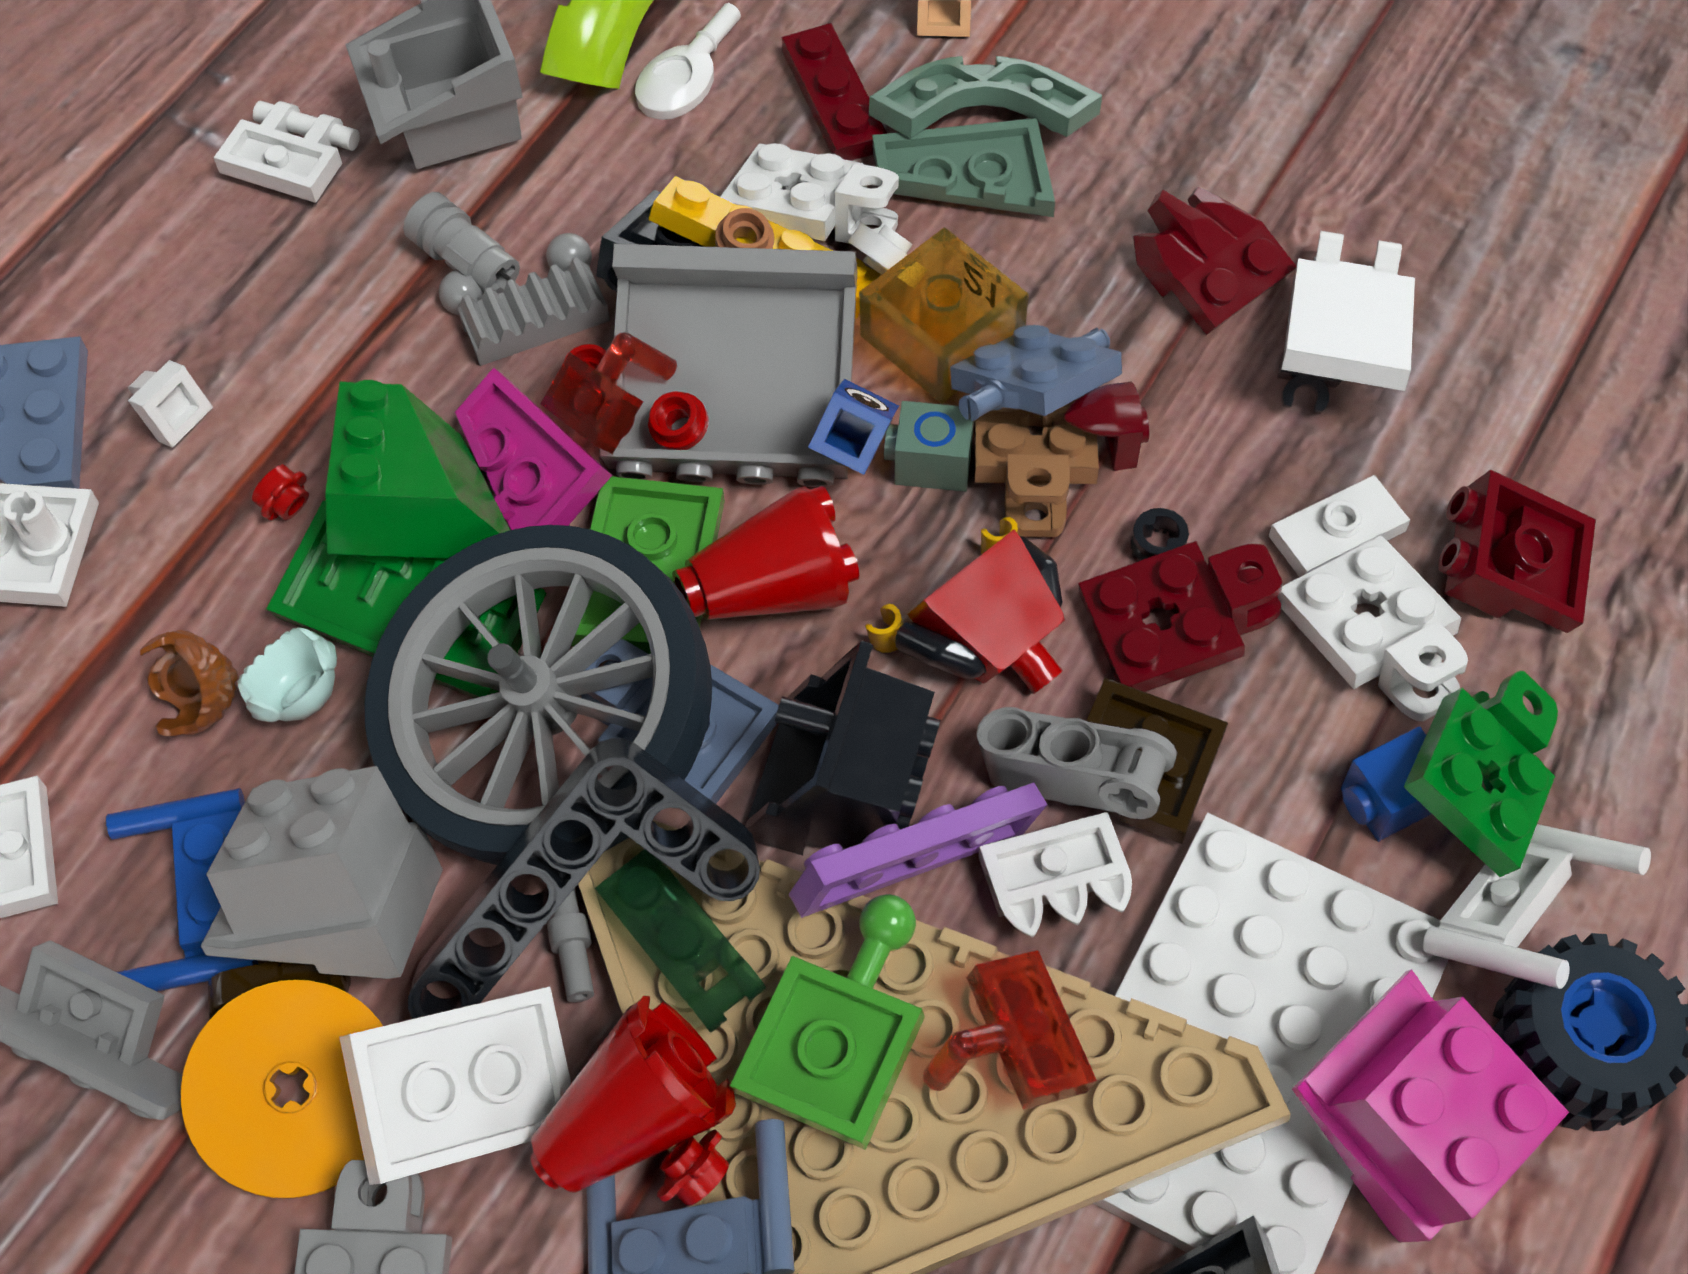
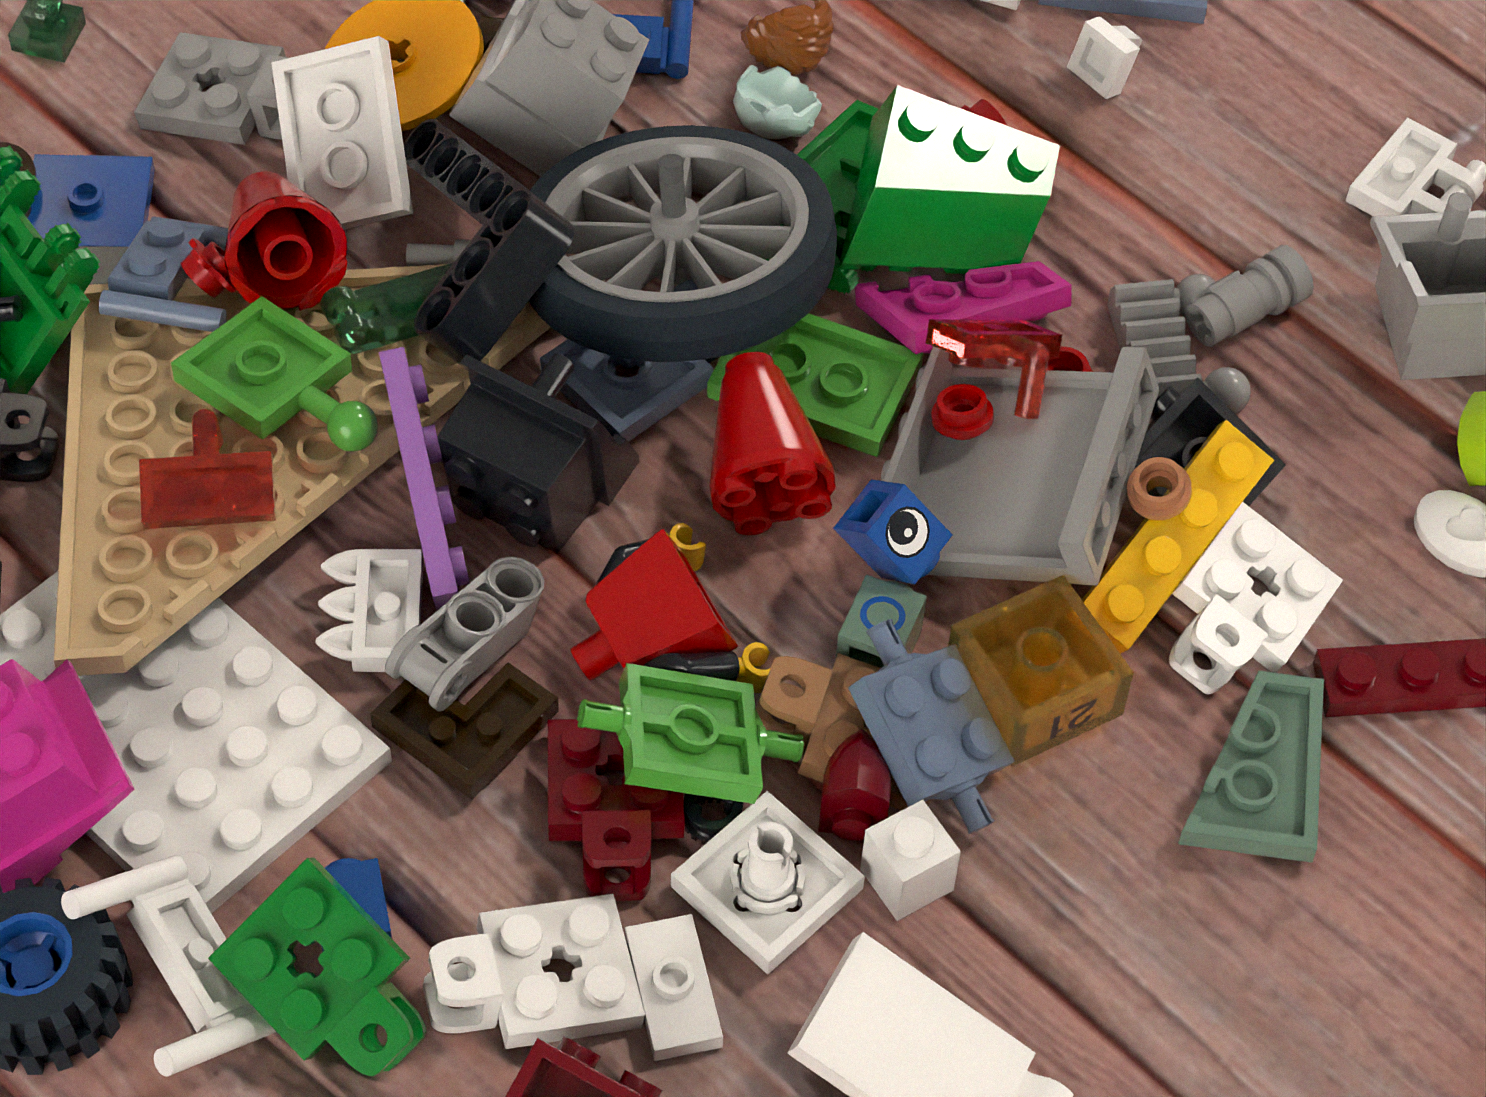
camera: 100 degrees right, 5 degrees down
(881, 248) = (1143, 635): white wheel -> none
(1012, 83) = (1391, 804): sand green plate -> none
(1118, 546) = (690, 733): none -> bright green plate
(1164, 371) = (910, 860): none -> white brick
(1209, 255) = (1073, 976): dark red plate -> none
(1223, 461) = (767, 843): none -> white plate

